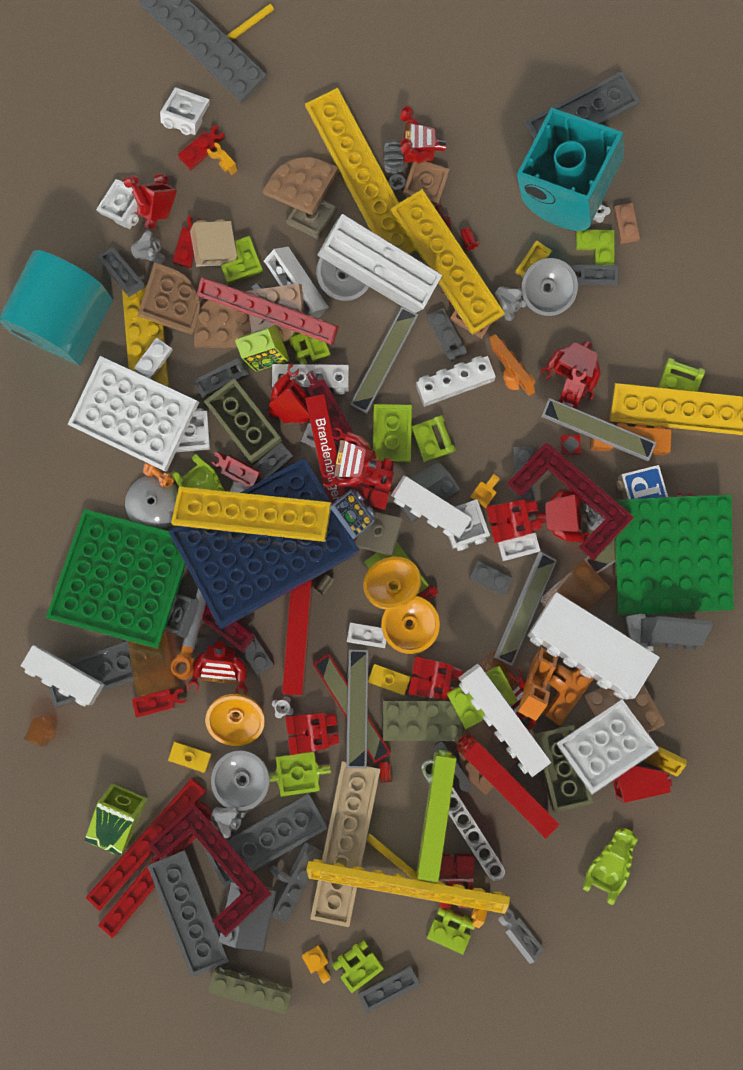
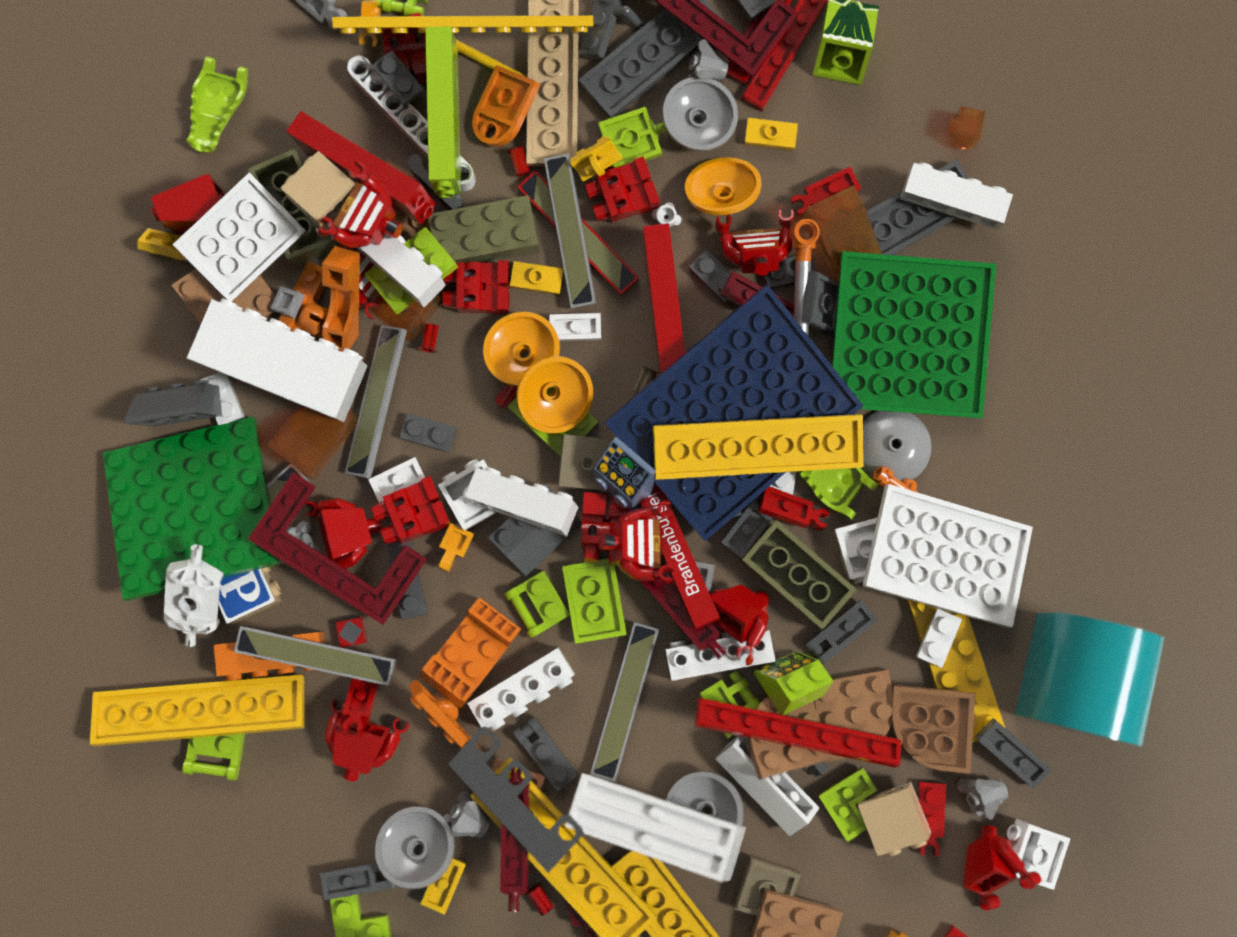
camera: 170 degrees right, 0 degrees up
(327, 758) = (595, 158): none -> yellow hips
(388, 818) = (503, 106): none -> orange plate
(466, 854) = (398, 78): none -> dark grey plate
(477, 649) = (429, 338): none -> red piece
(478, 279) = (514, 856): none -> dark red plate
(482, 303) = (502, 800): none -> dark grey piece
(487, 412) = (470, 653): none -> orange plate
(509, 738) = (365, 214): none -> torso
(540, 766) = (318, 189): none -> tan piece
(579, 695) = (287, 302): none -> light grey tile
(677, 495) = (198, 582): none -> white plate

